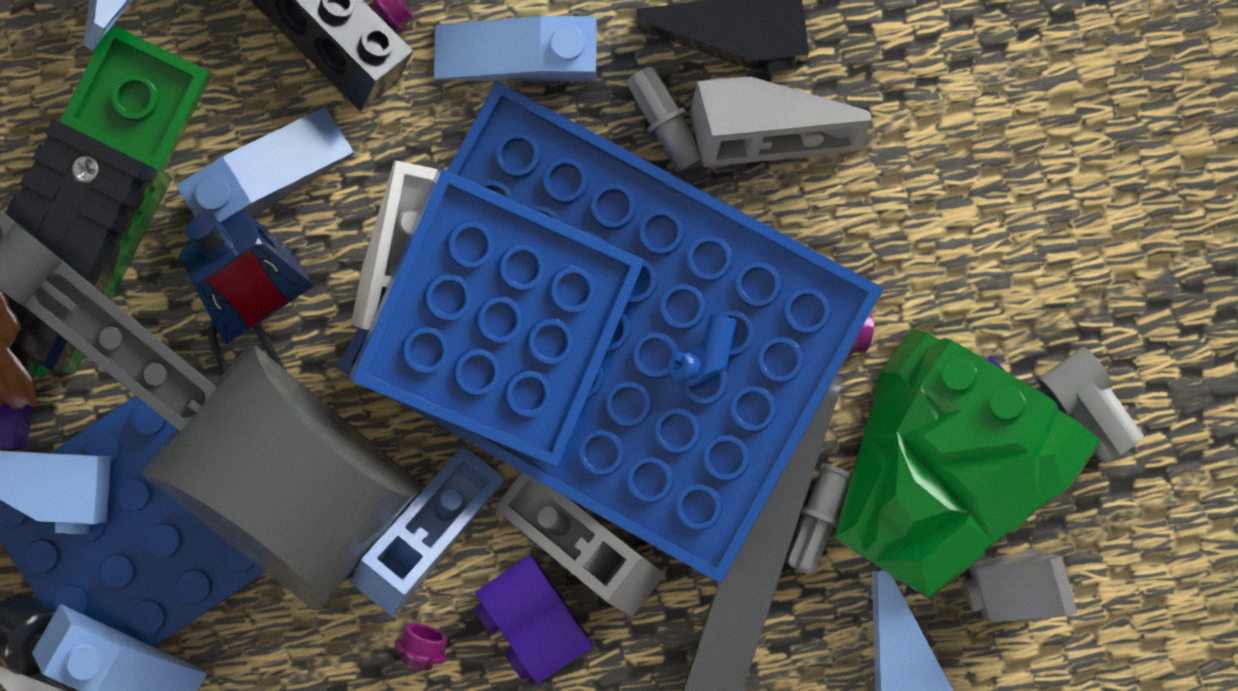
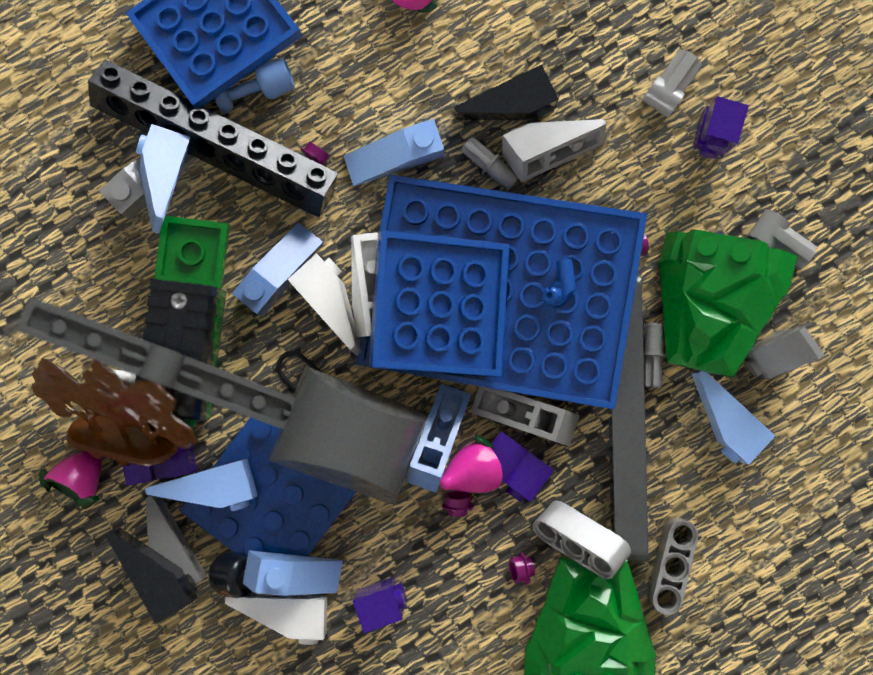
camera: 25 degrees left, 0 degrees up
(240, 271) = (284, 329): torso -> none
(329, 244) = (327, 295): none -> white slope
(462, 600) = (473, 469): none -> dark pink hat
(994, 97) = (669, 88): none -> light grey piece
(1051, 190) = (720, 127): none -> dark purple brick

